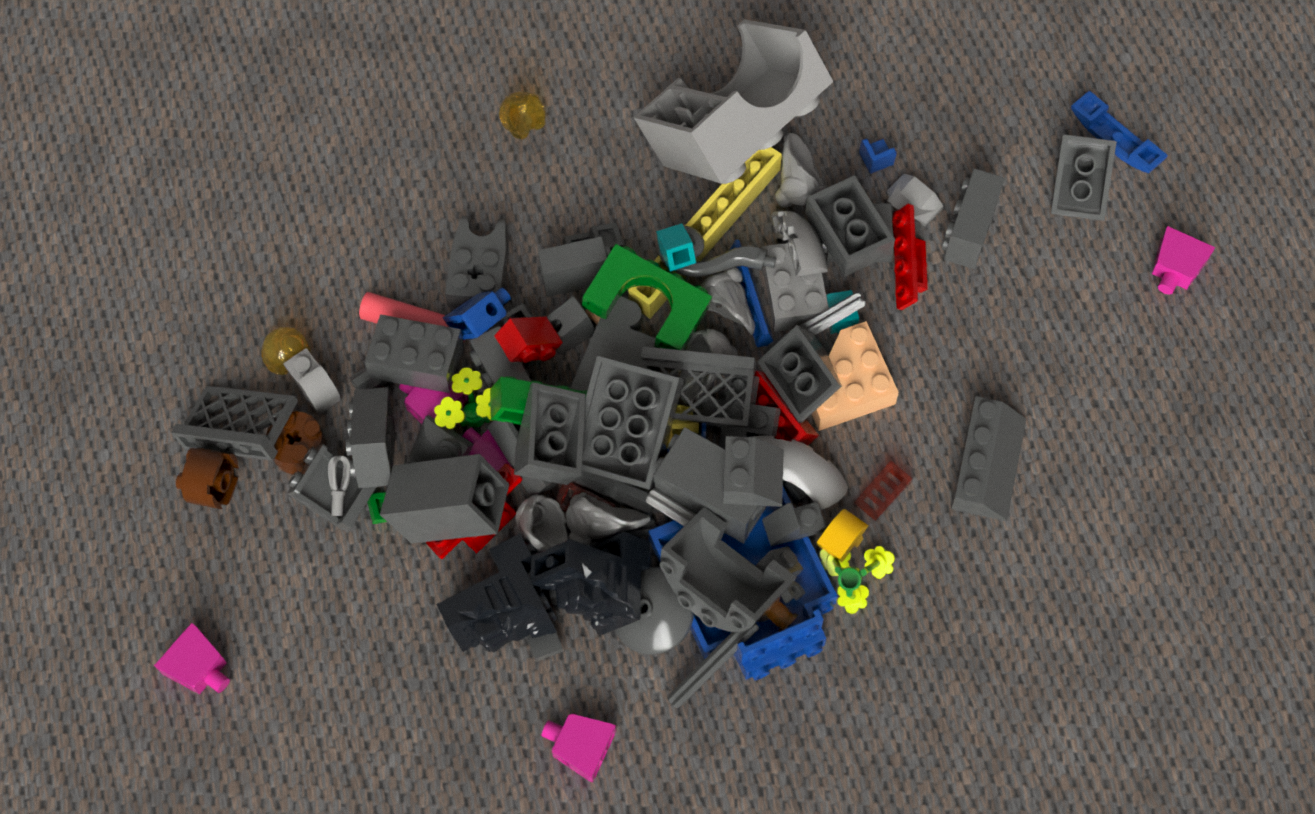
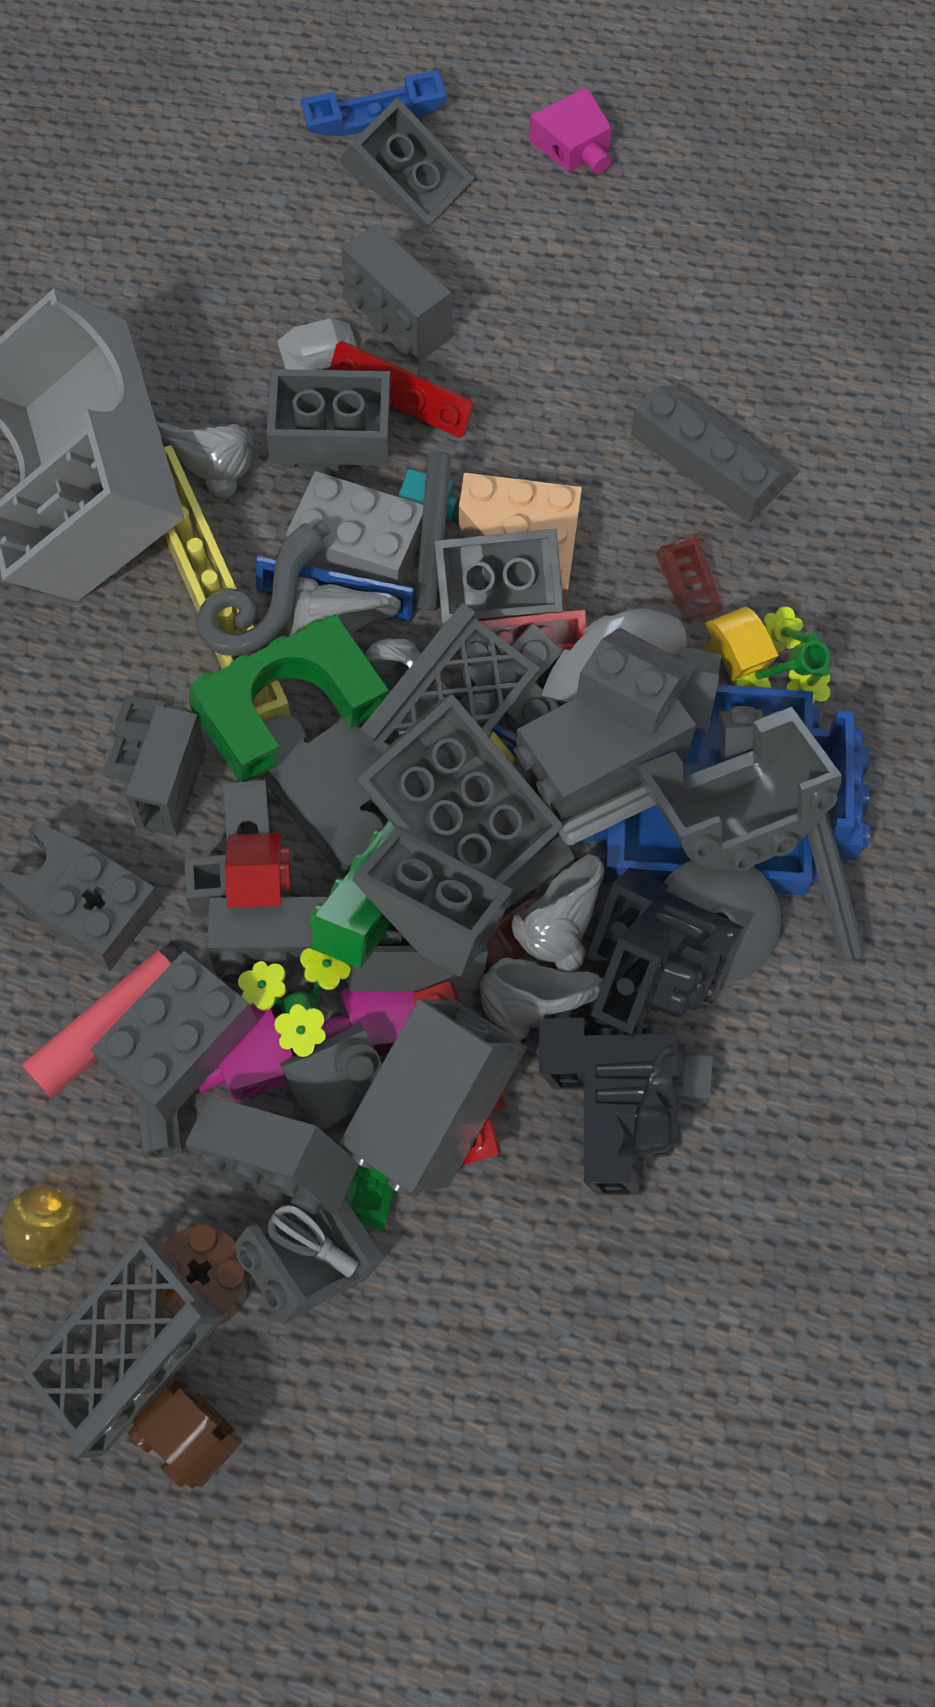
camera: 65 degrees left, 0 degrees up
(194, 662) = (467, 1591): dark pink torso -> none
(313, 381) = (126, 1203): light grey brick -> none
(478, 313) = (168, 921): blue torso -> none
(580, 743) = (855, 1099): dark pink torso -> none
(676, 247) = (240, 617): teal brick -> none
(802, 244) = (317, 478): light grey brick -> none
(876, 155) = (232, 356): blue panel -> none

